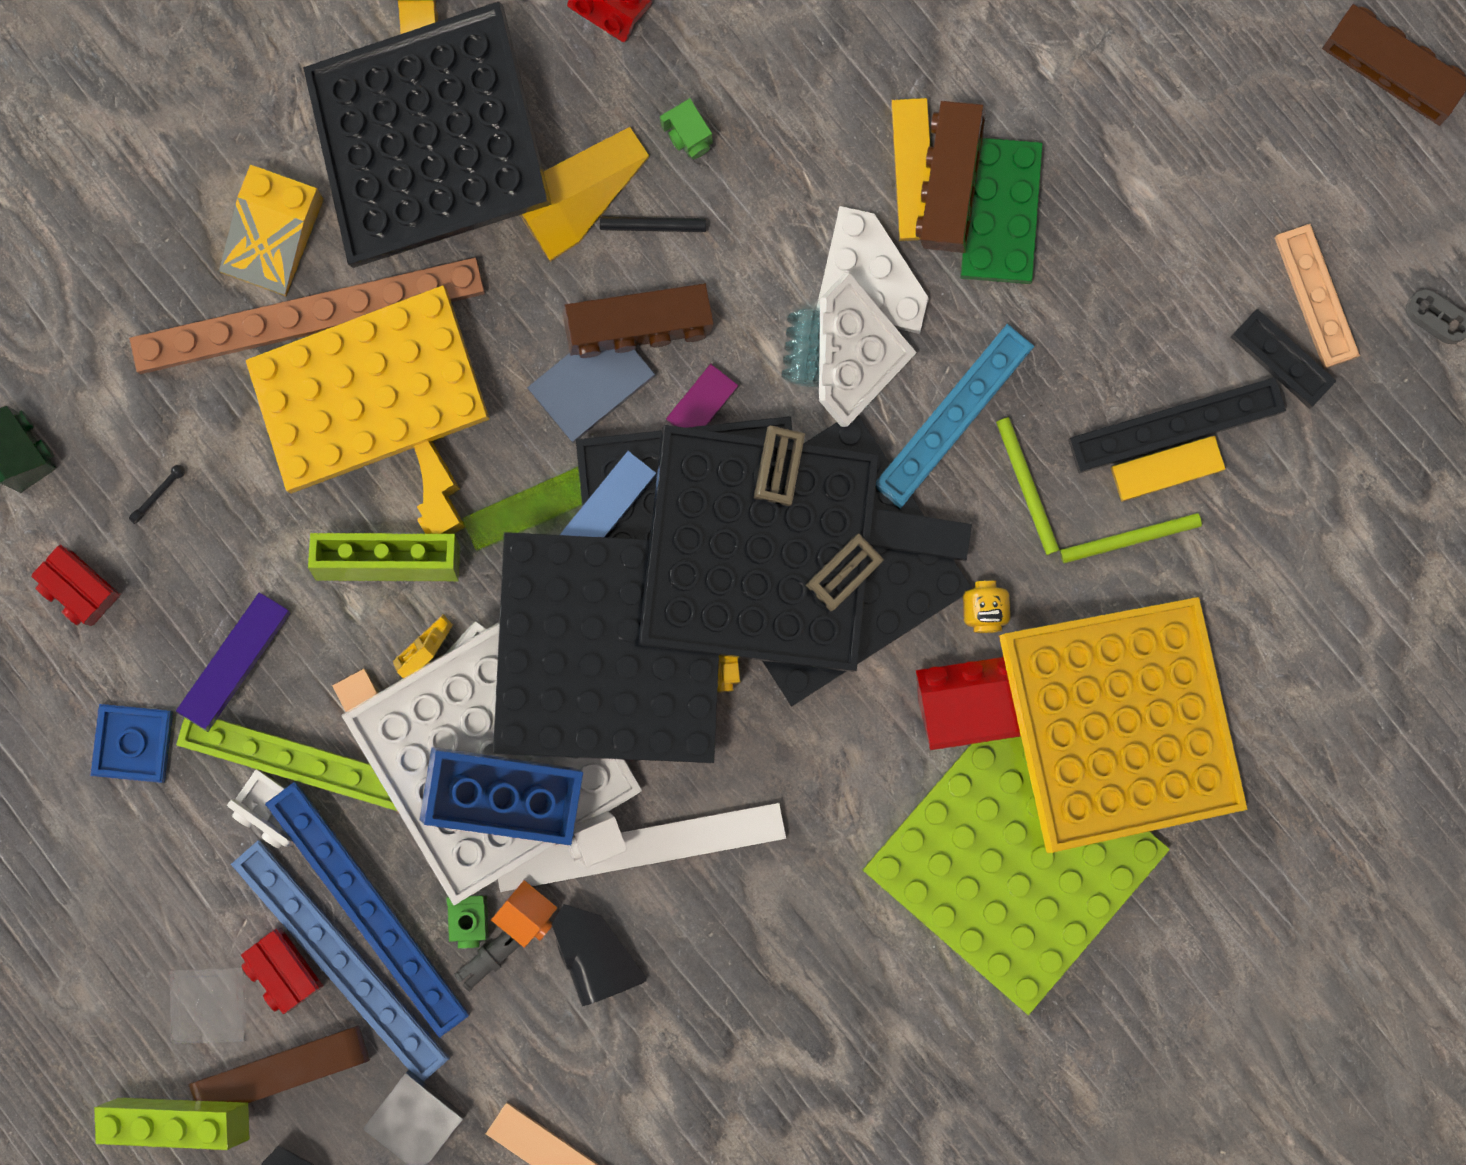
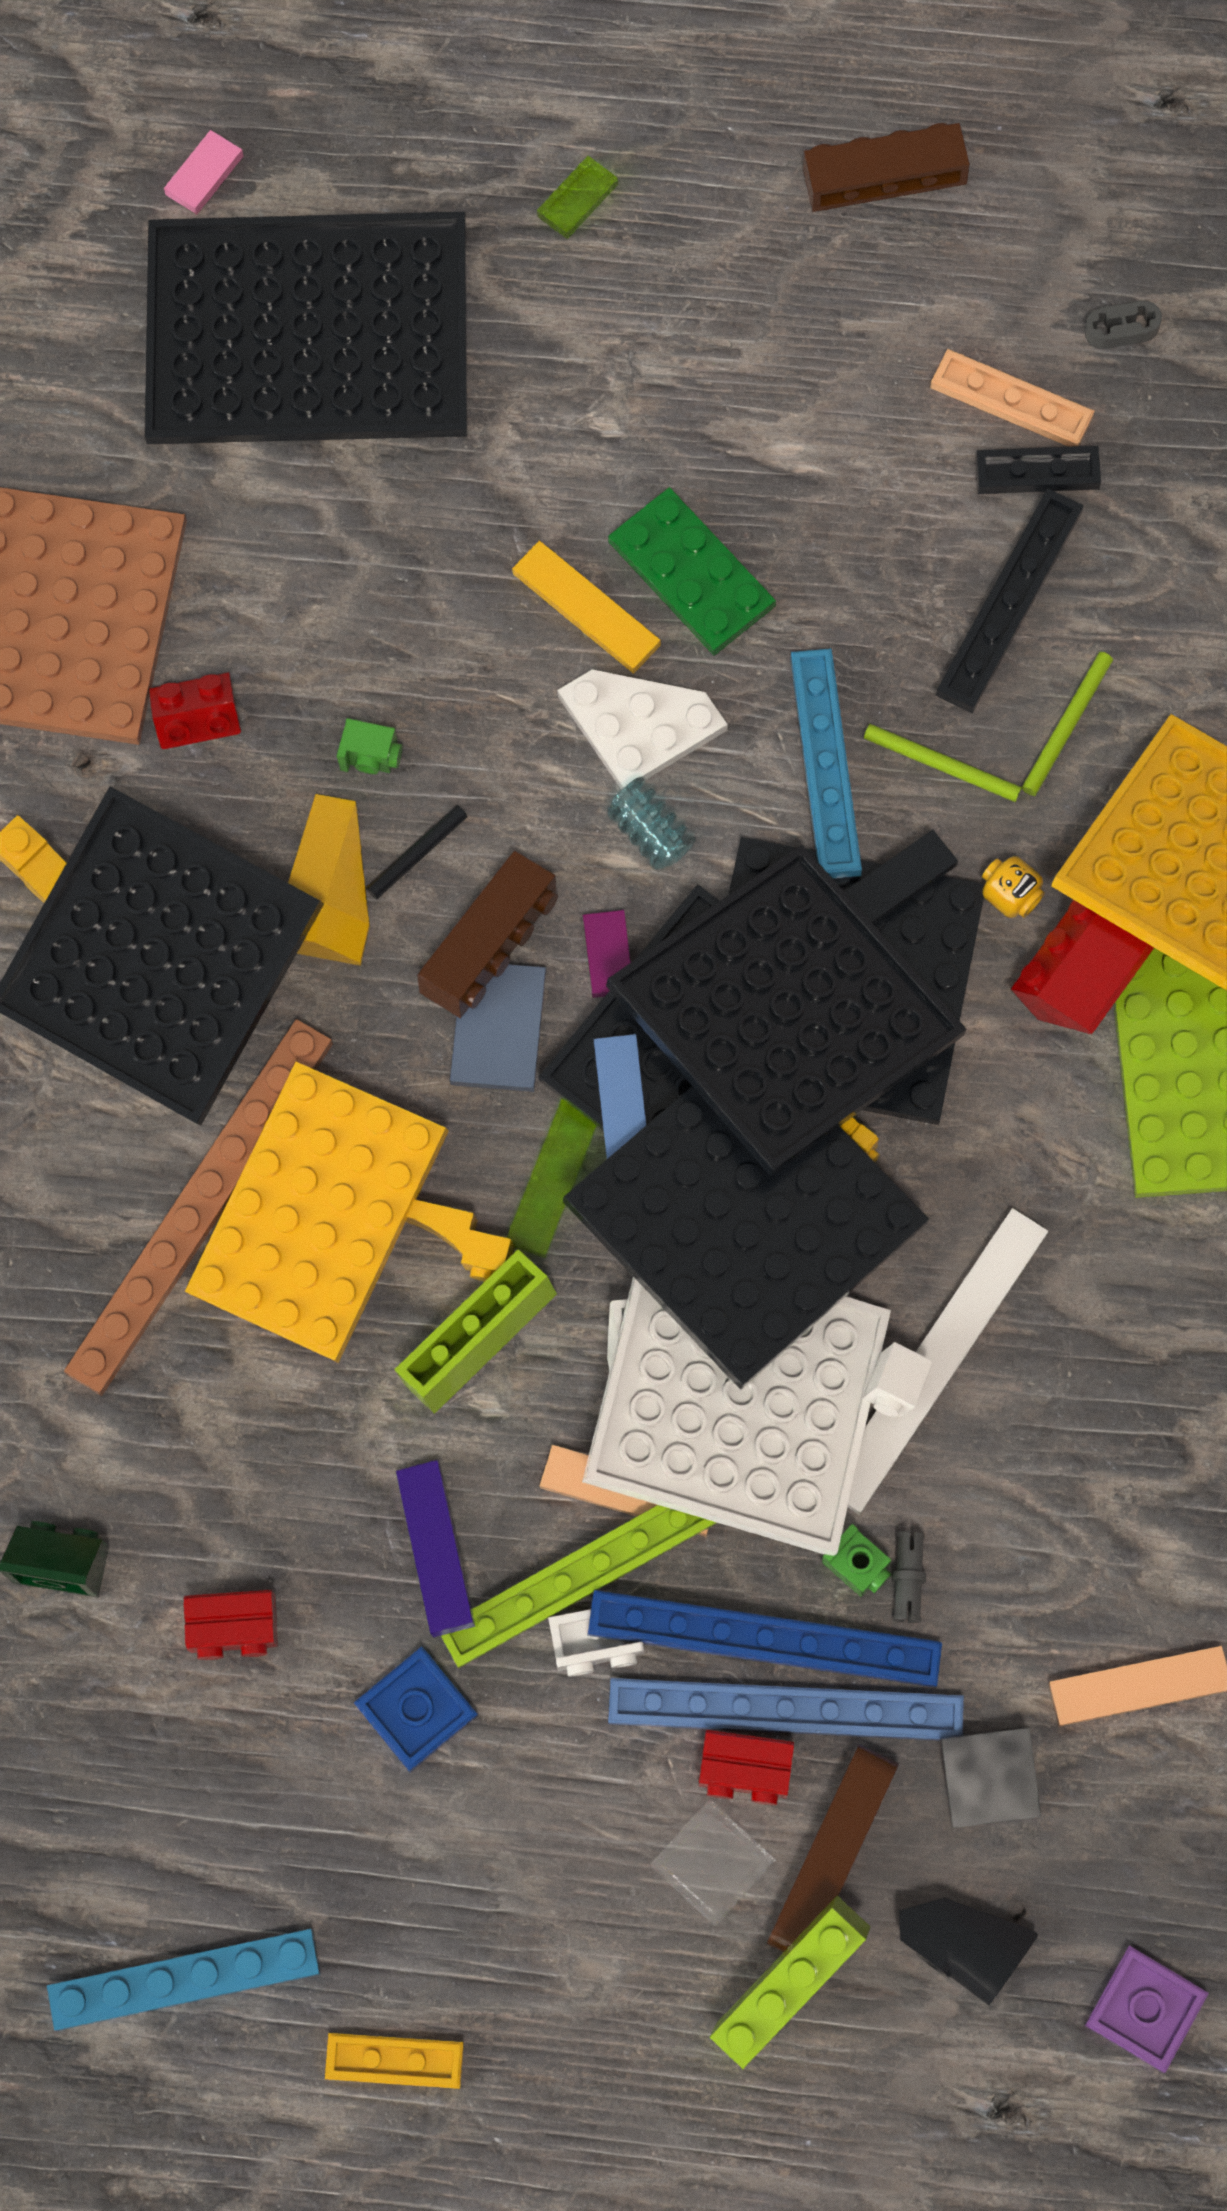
camera: 45 degrees left, 10 degrees down
(176, 472) = (219, 1444): black hinge -> none
(269, 229) = (95, 1164): yellow slope -> none
(423, 648) = (587, 1377): yellow wing -> none
(501, 796) = (785, 1413): blue brick -> none
(525, 914) = (902, 1506): orange brick -> none
(594, 955) = (993, 1484): black panel -> none
(773, 495) = (731, 946): dark tan tile -> none
(823, 593) = (874, 990): dark tan tile -> none
(857, 350) = (695, 784): white plate -> none
(952, 176) = (628, 576): reddish brown brick -> none
(1167, 468) = (1038, 641): yellow tile -> none

